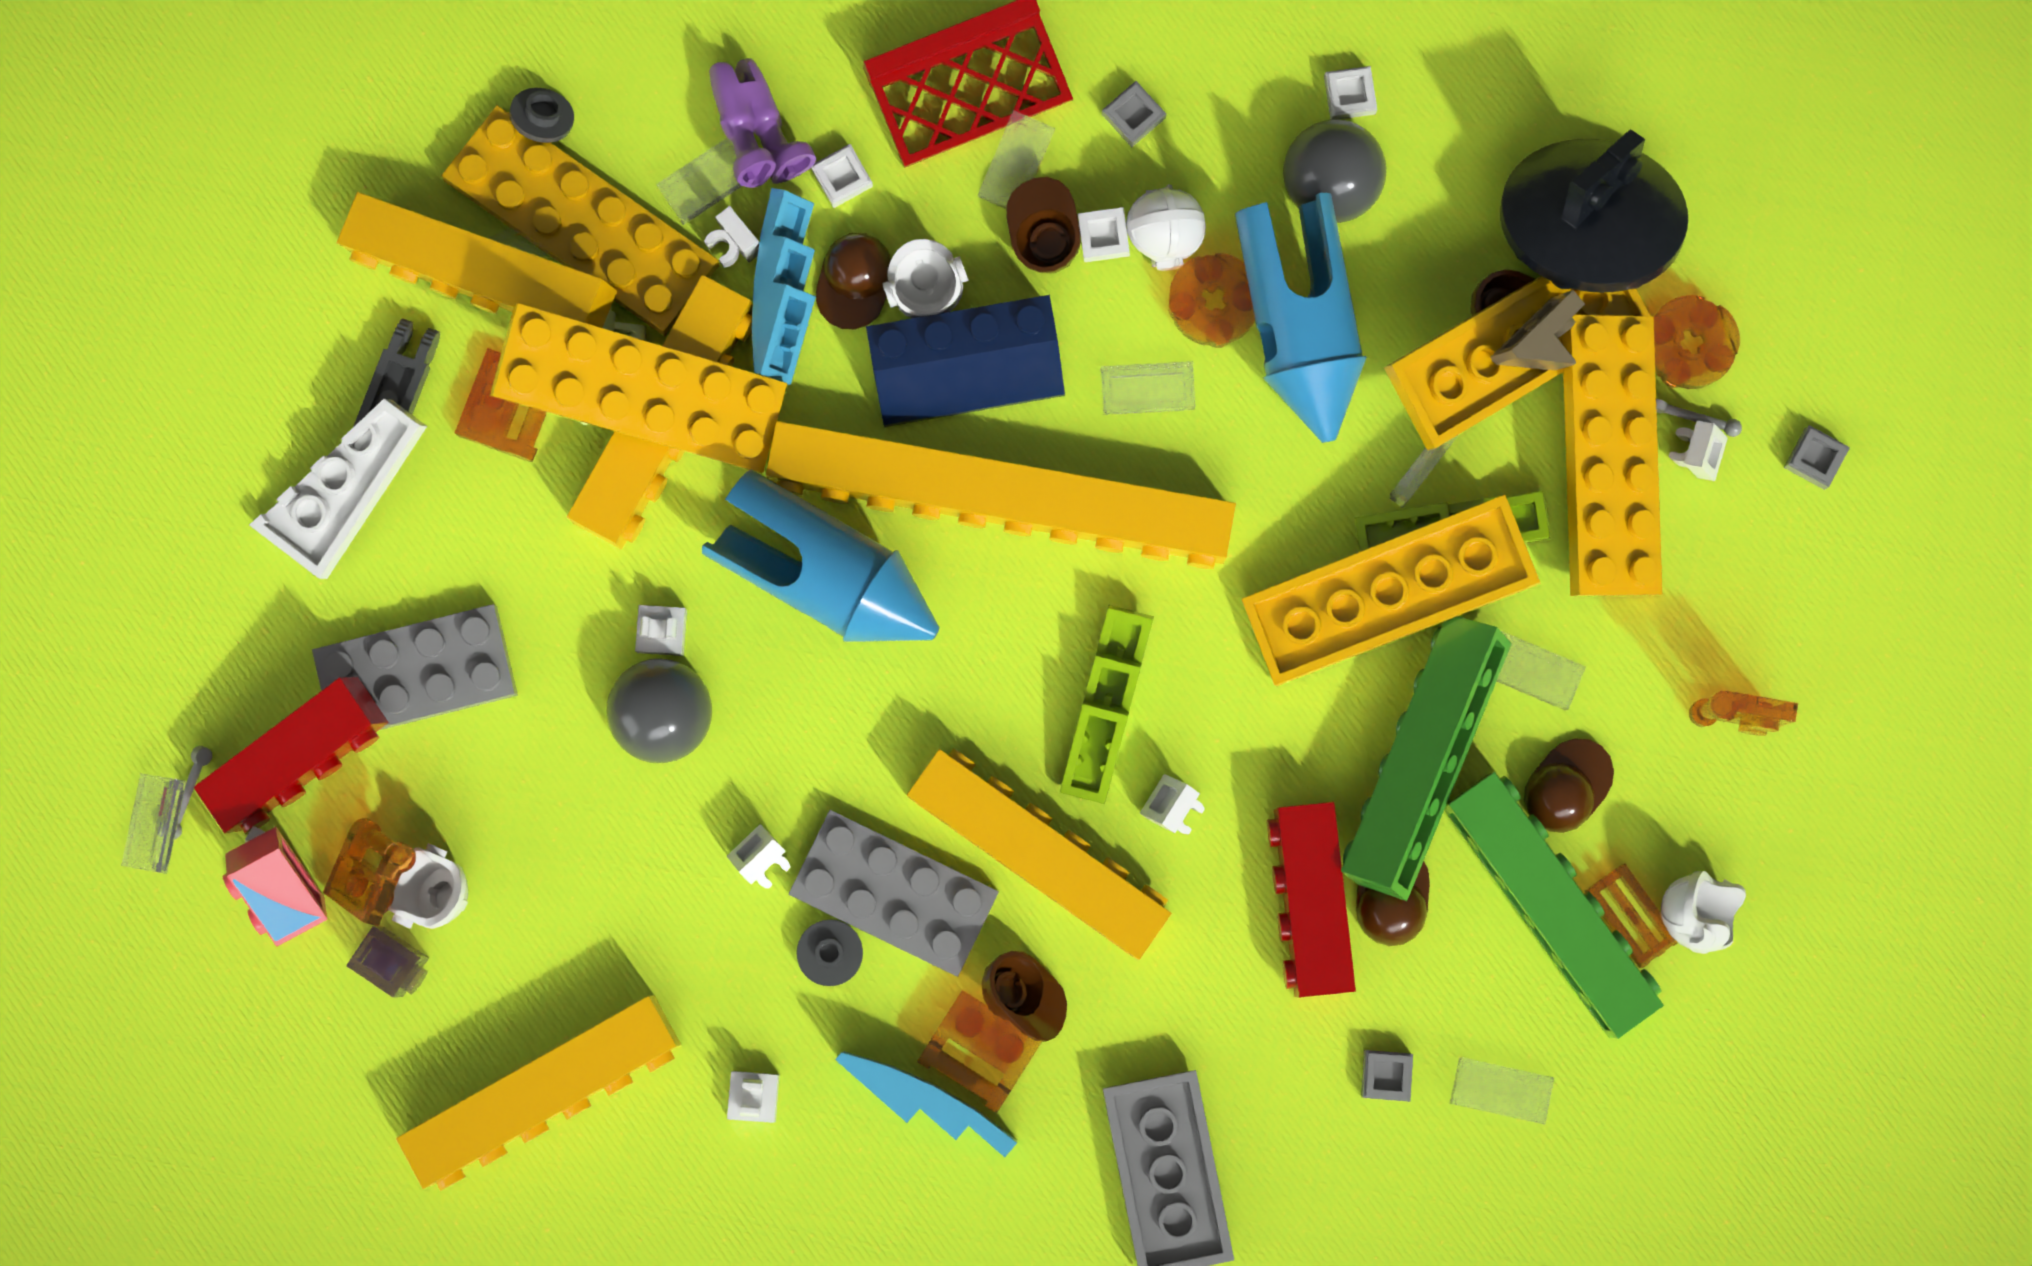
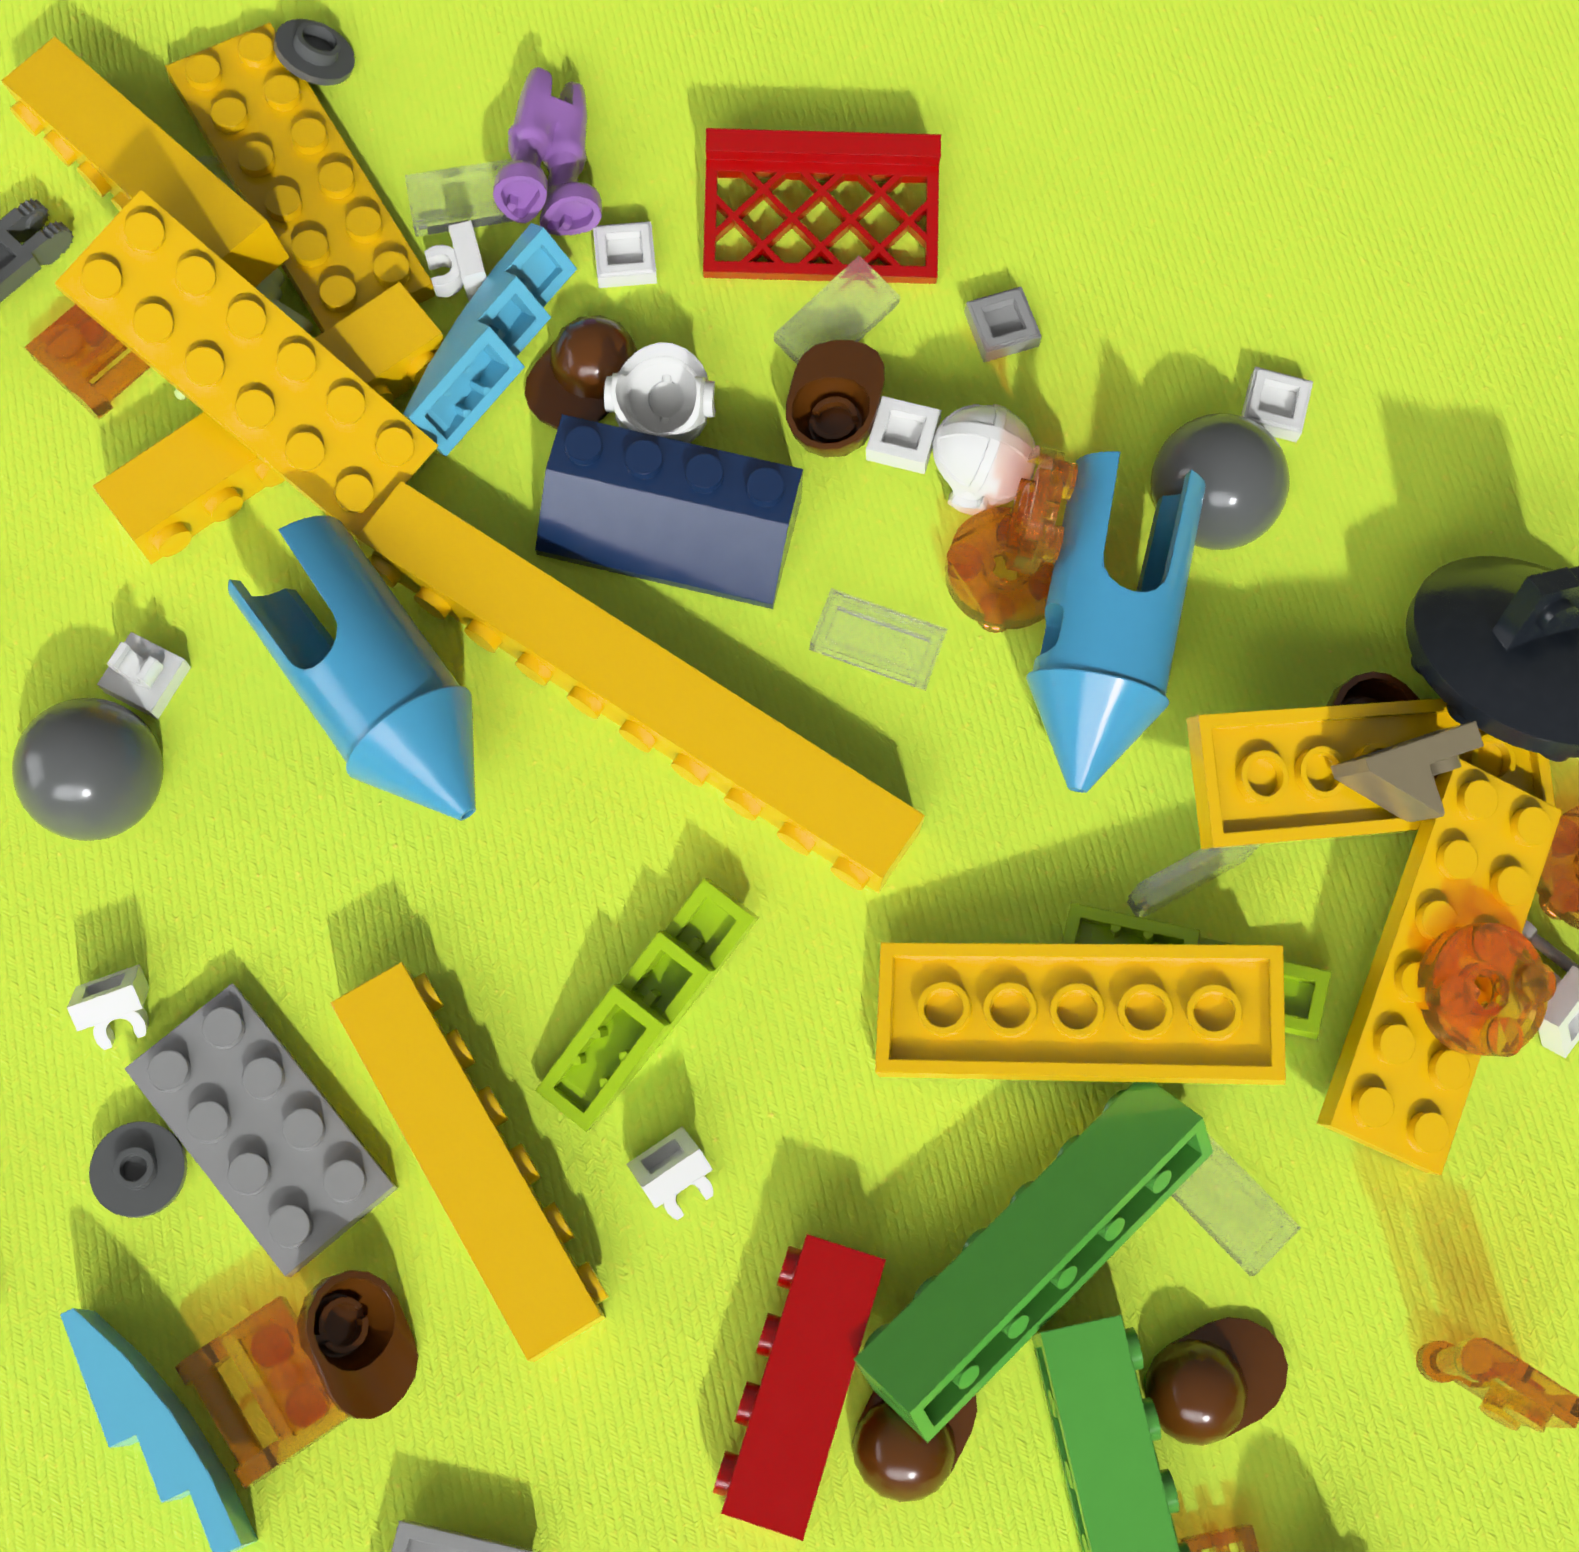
camera: 20 degrees right, 10 degrees down
(1224, 260) = (1036, 510): none -> clear orange plate
(1668, 458) = (1518, 982): none -> clear orange plate

